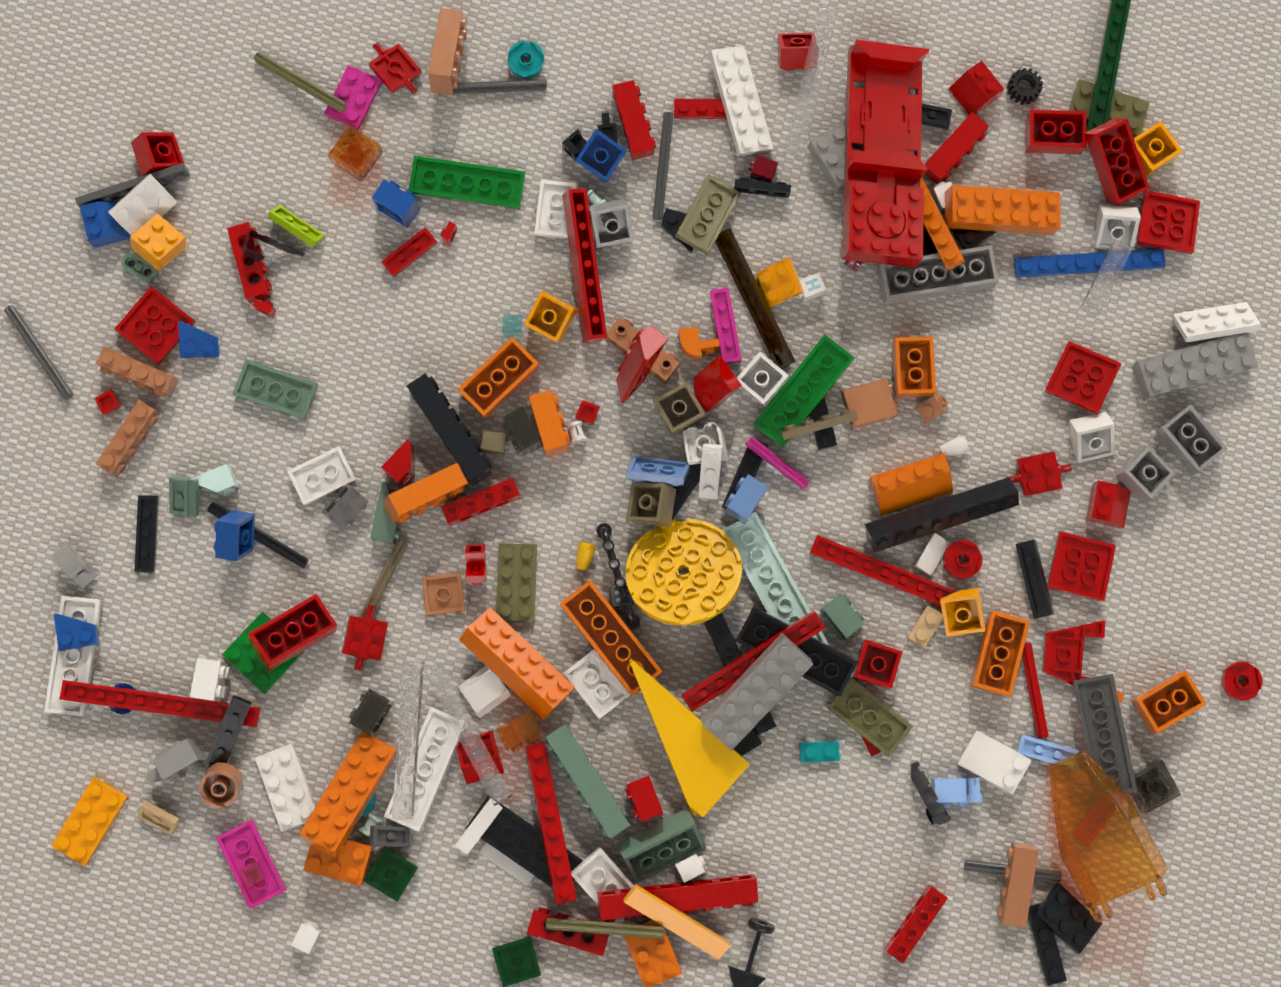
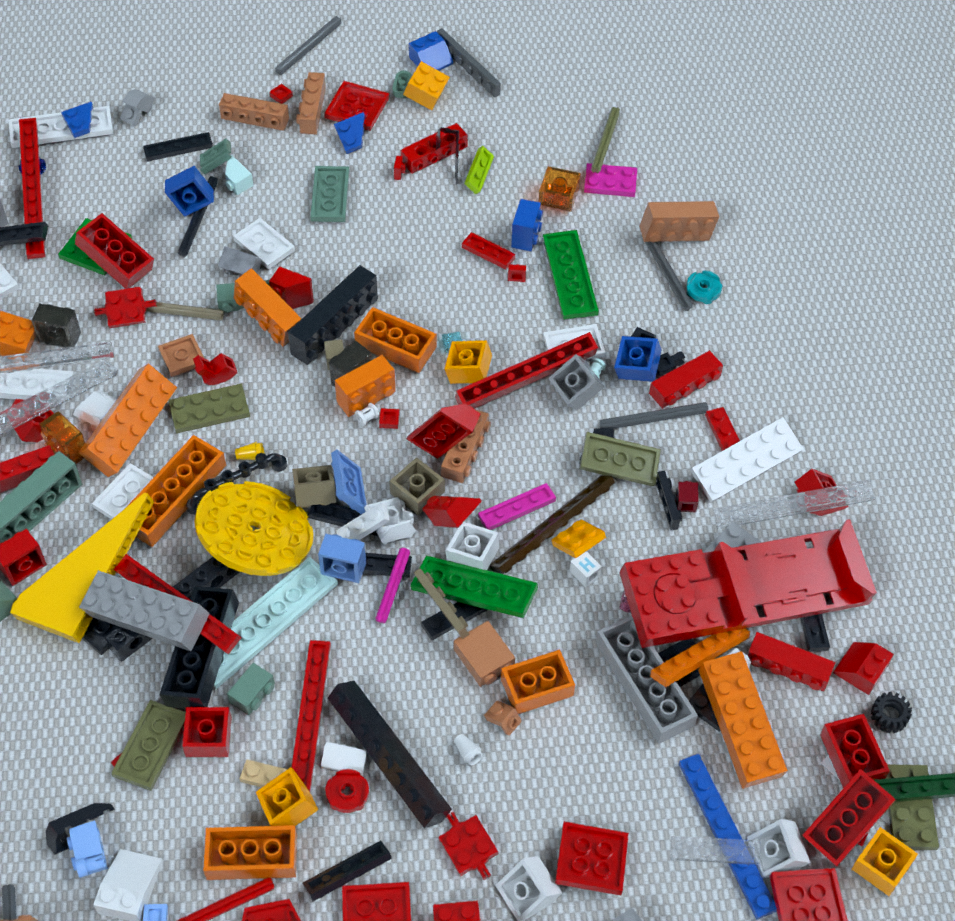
camera: 75 degrees right, 25 degrees down
(142, 204) = (458, 67): white plate -> none
(156, 151) = (505, 68): red slope -> none
(210, 680) = (59, 209): white brick -> none
(395, 68) = (646, 192): red plate -> none
(480, 502) = (276, 358): red brick -> none
(693, 347) = (487, 483): orange brick -> none
(819, 751) = (103, 708): teal plate -> none
(911, 484) = (413, 717): orange slope -> none

